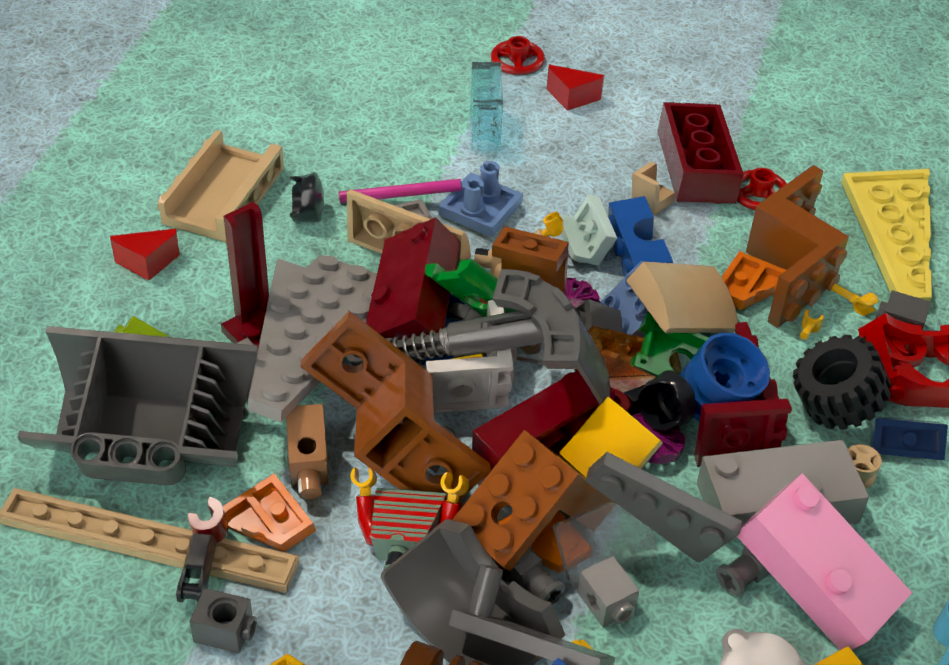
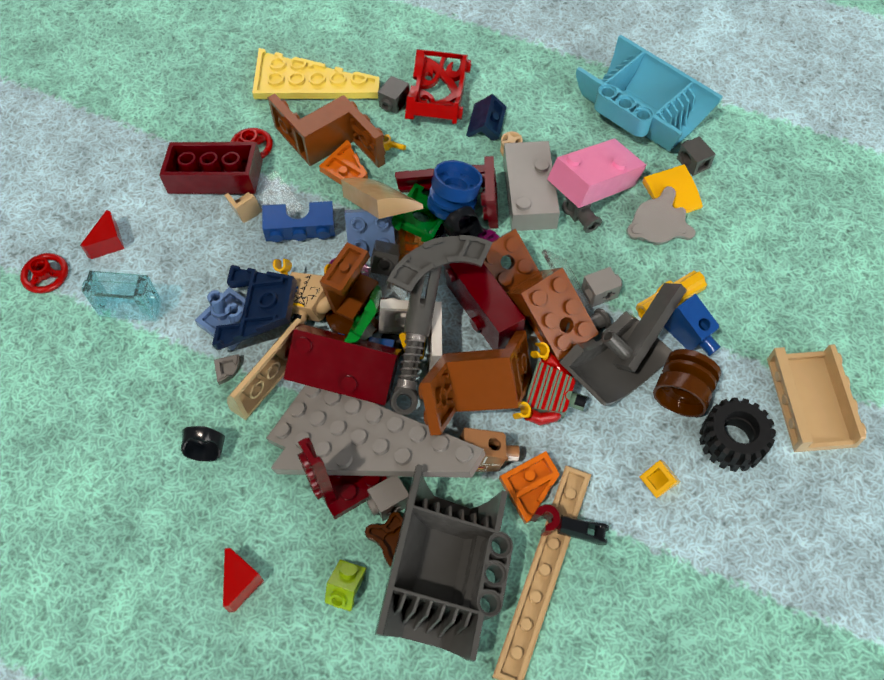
camera: 80 degrees left, 15 degrees up
(217, 183) = (163, 516): tan panel -> none
(220, 607) = (618, 524): dark grey brick -> none
(407, 190) = (203, 376): dark pink bar -> none
(487, 217) = (265, 308): none -> dark blue wing
(589, 232) = (281, 246): light aqua bracket -> none
(610, 431) = (519, 256): yellow slope -> none
(669, 511) = (568, 235): dark grey wing -> none
(849, 401) = (451, 116): black tyre -> none
(862, 304) = (374, 112): yellow hand -> none

